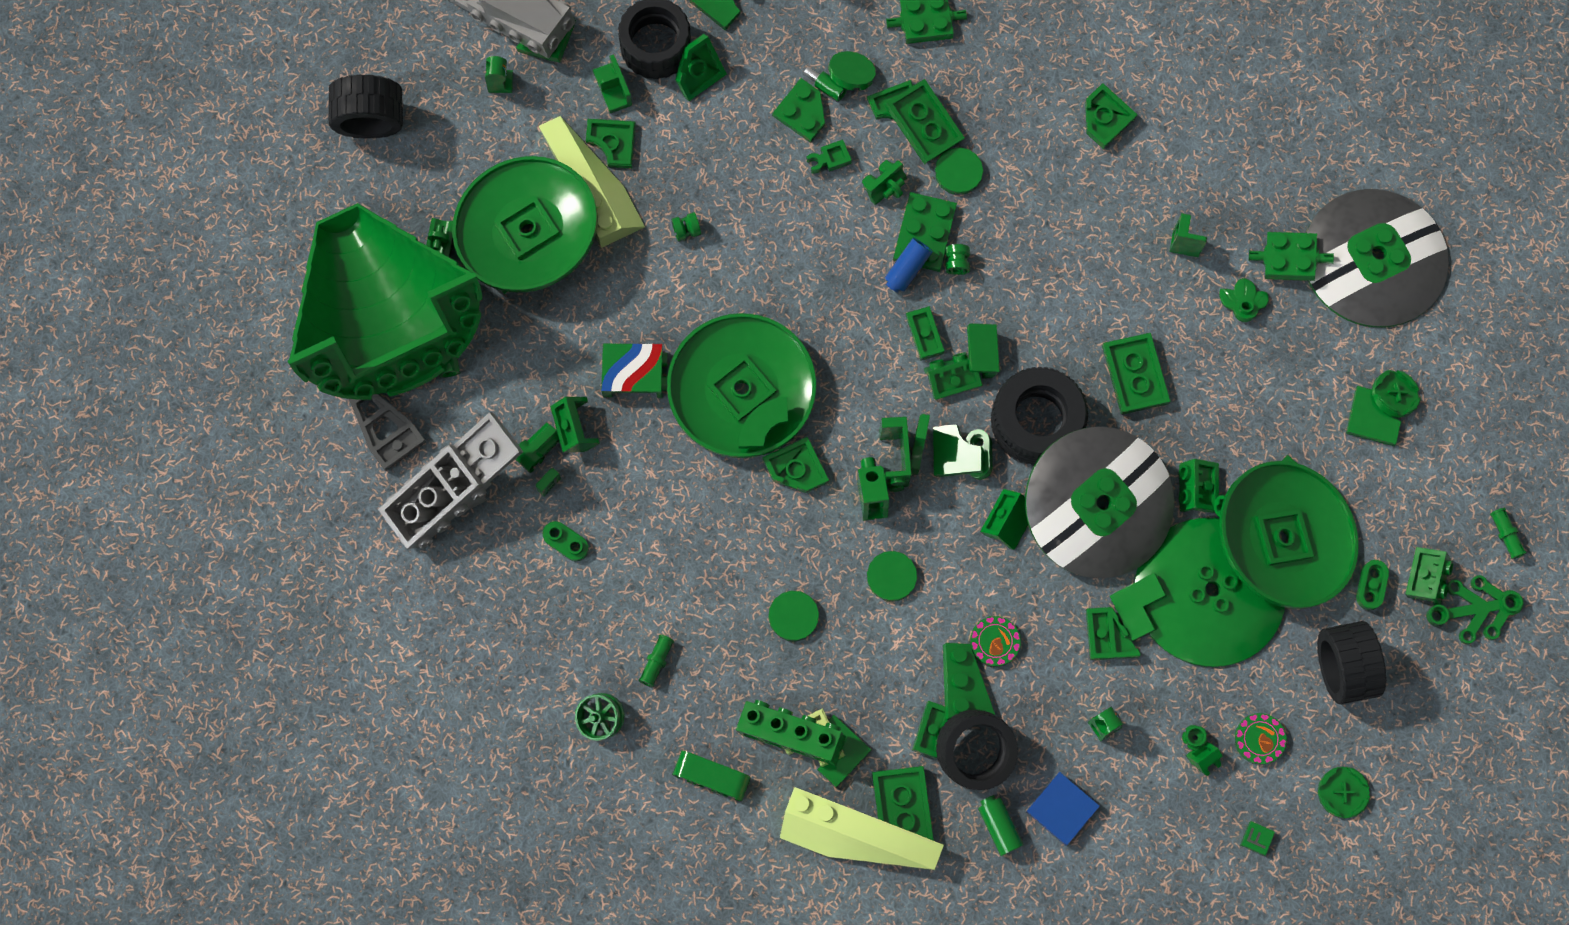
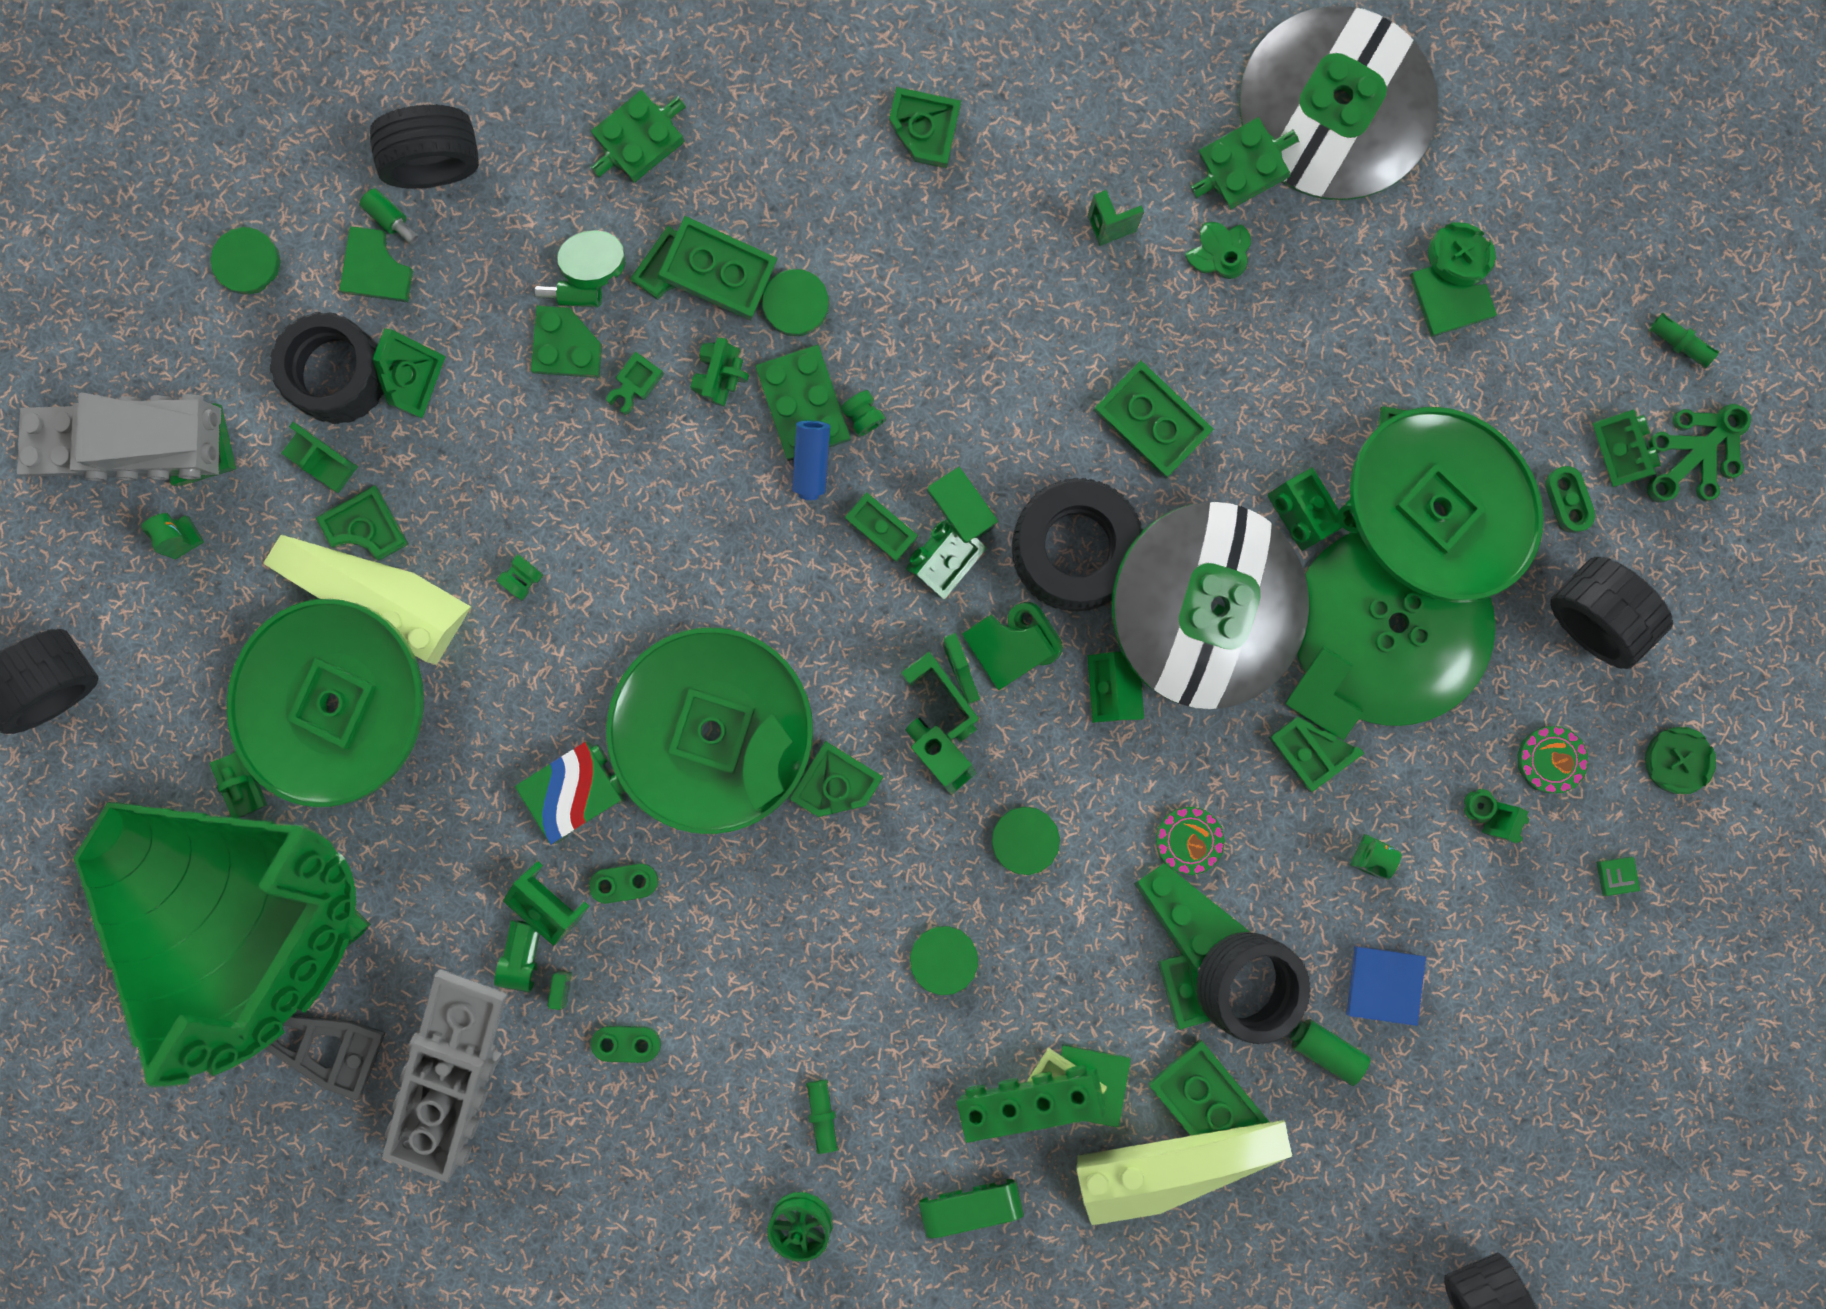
camera: 30 degrees left, 10 degrees up
(627, 445) = (623, 883): none -> green plate

